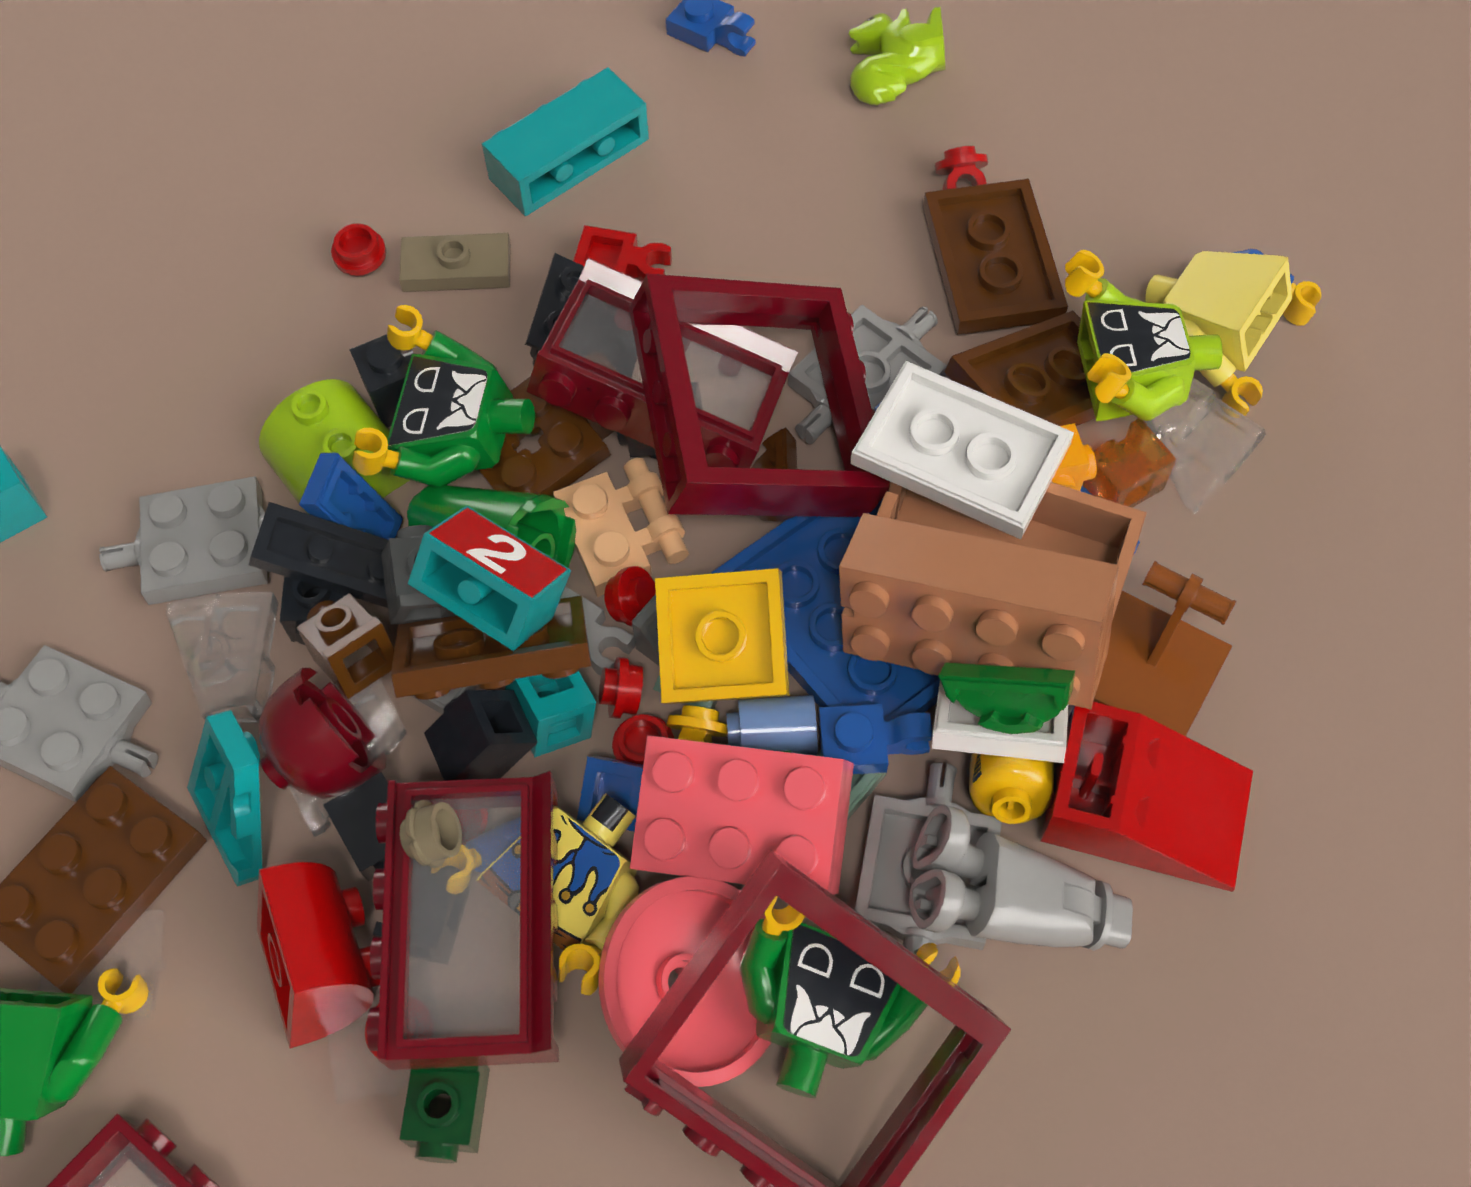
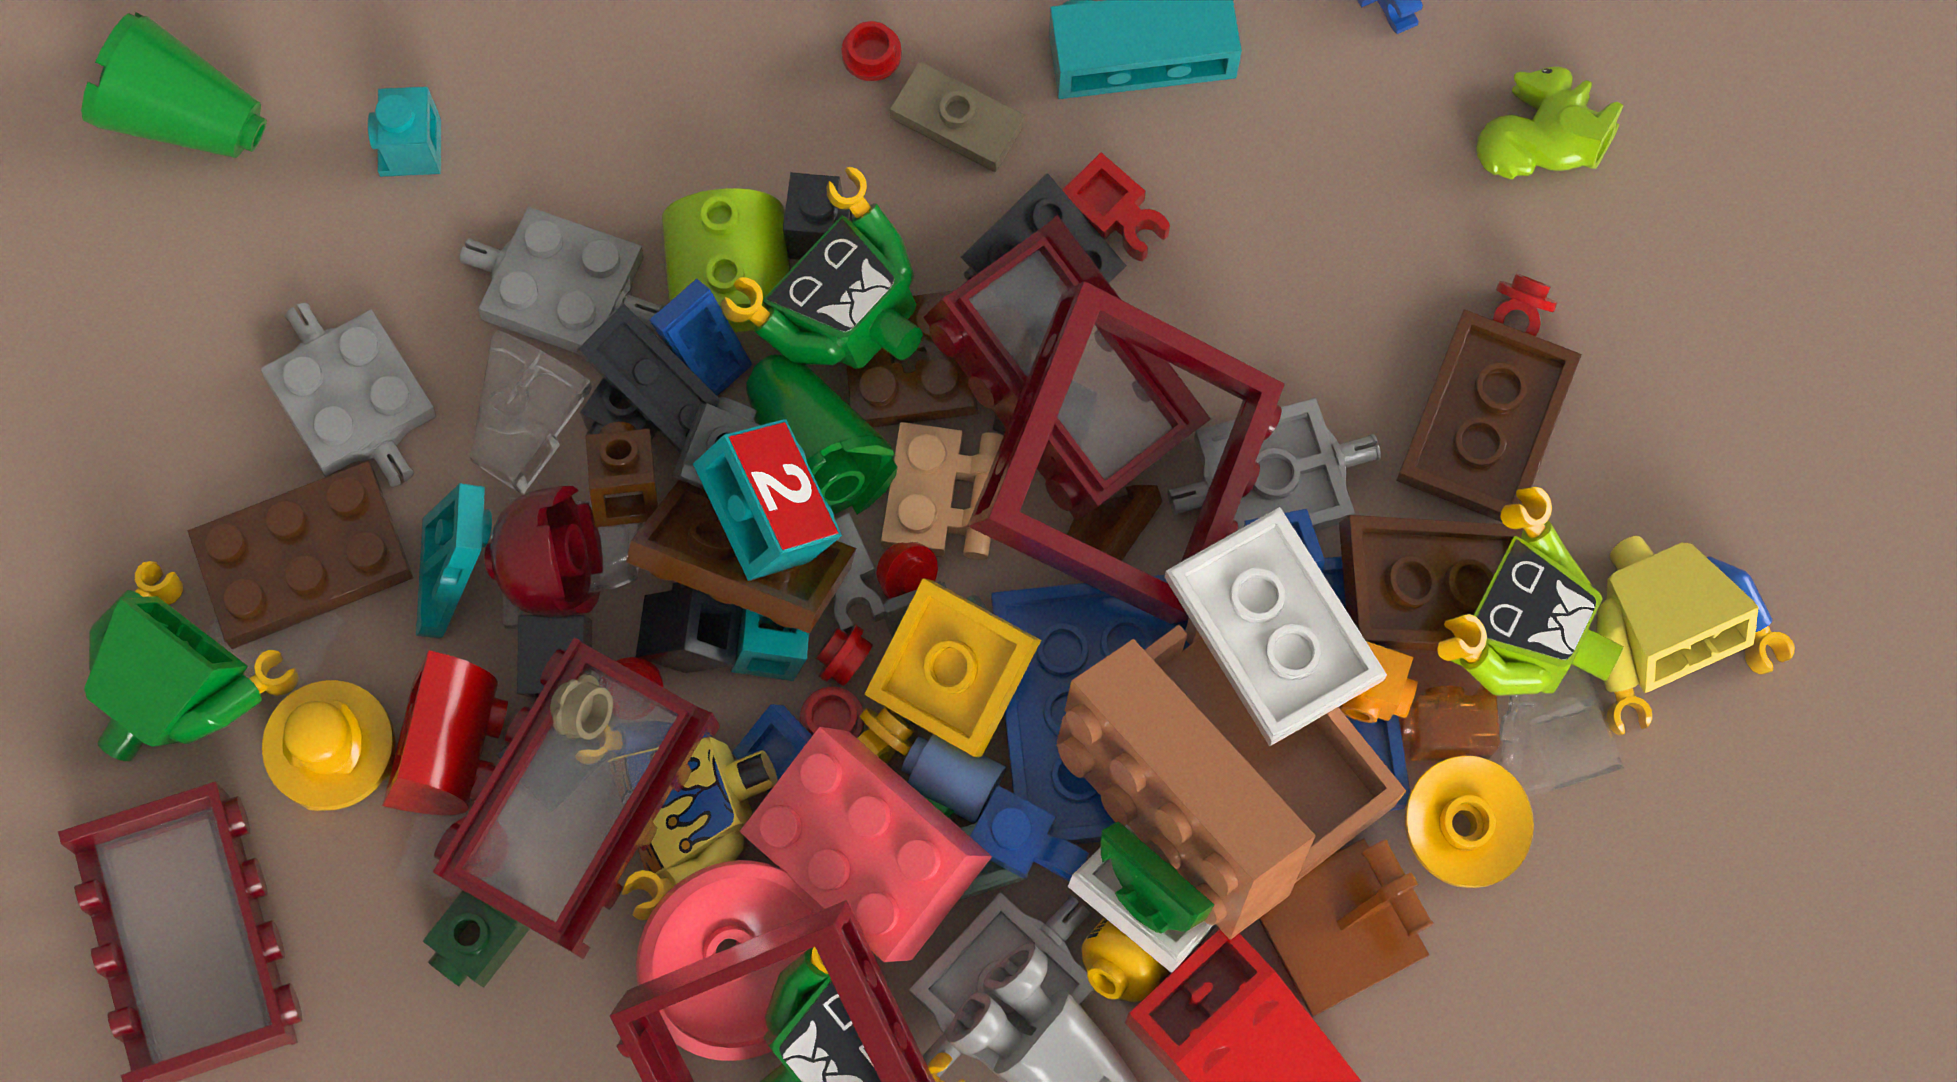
camera: 30 degrees right, 10 degrees up
(208, 1025) = (328, 745): none -> yellow plate
(1203, 518) = (1497, 817): none -> yellow dish

